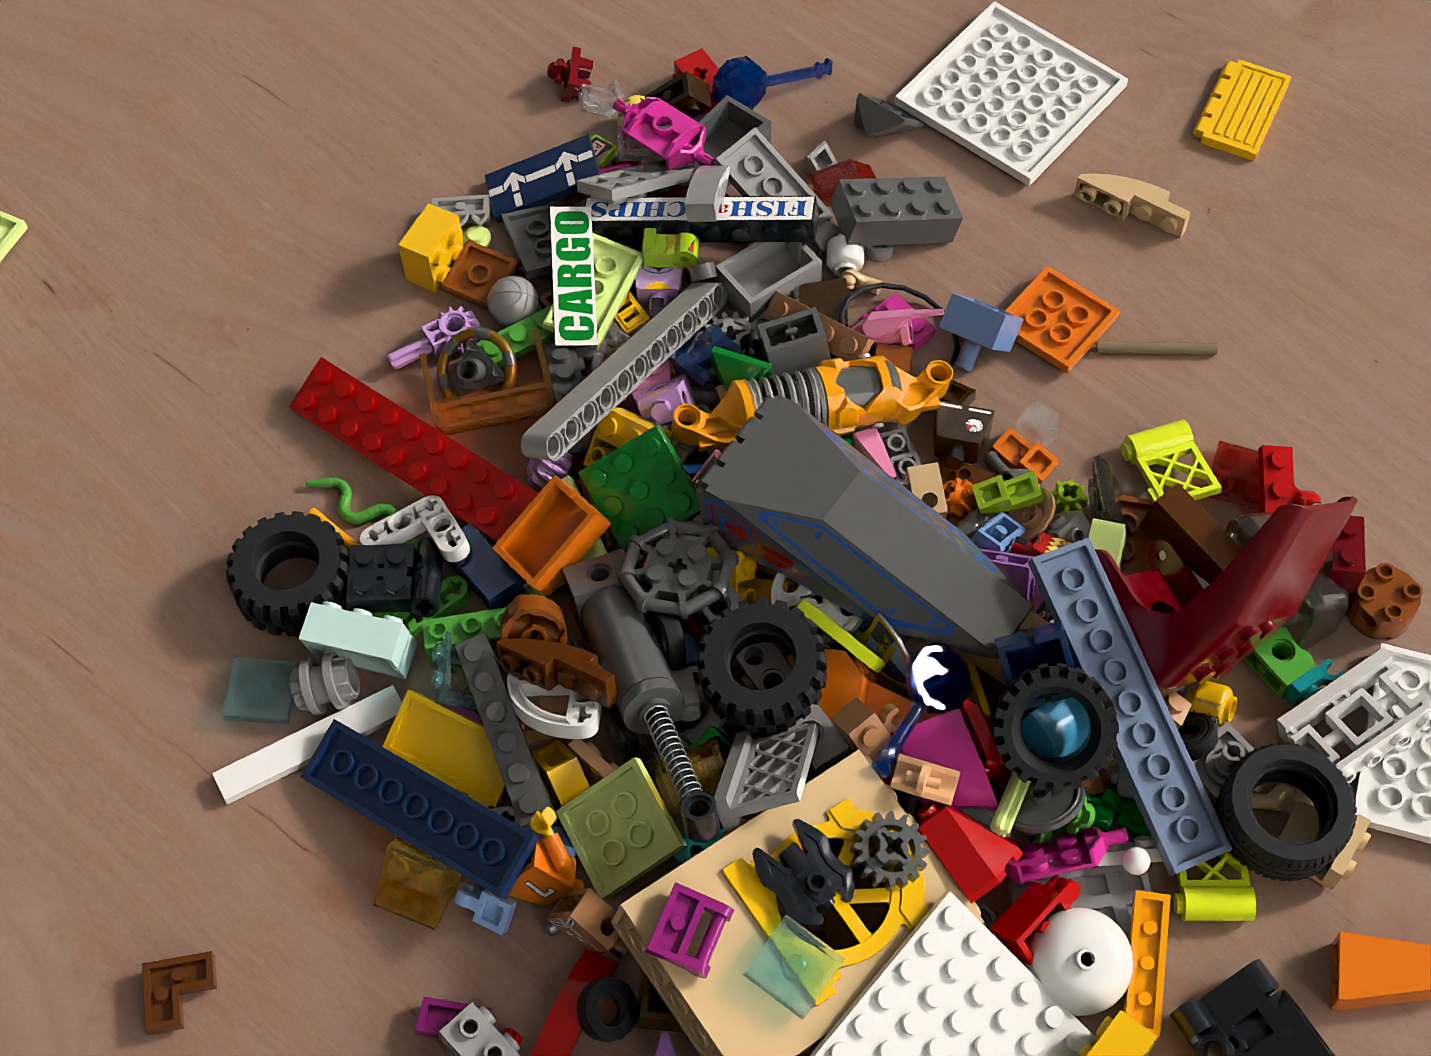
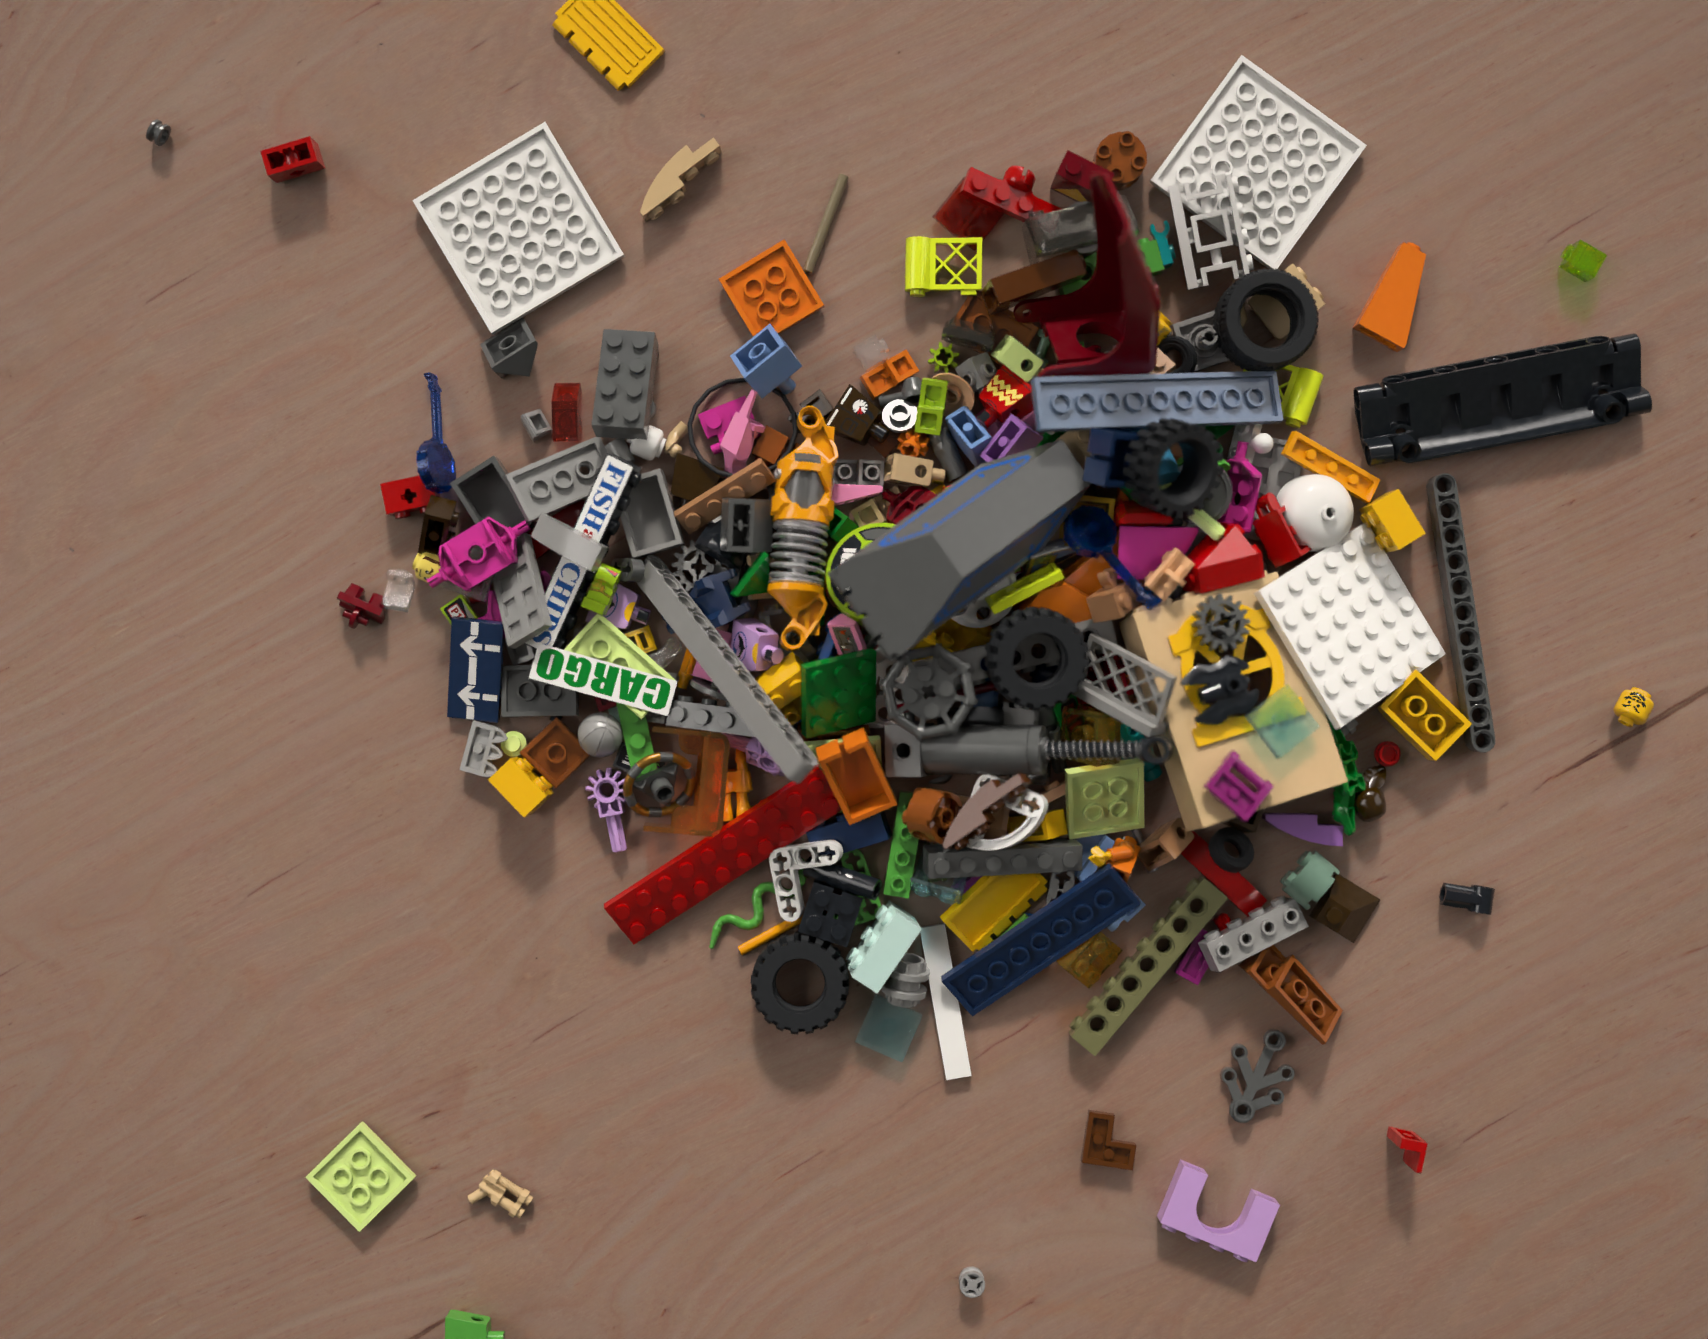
camera: 75 degrees left, 30 degrees up
(318, 907) = (1162, 960): none -> olive brick
(502, 439) = (739, 782): none -> light orange piece
(980, 468) = (899, 416): none -> piece

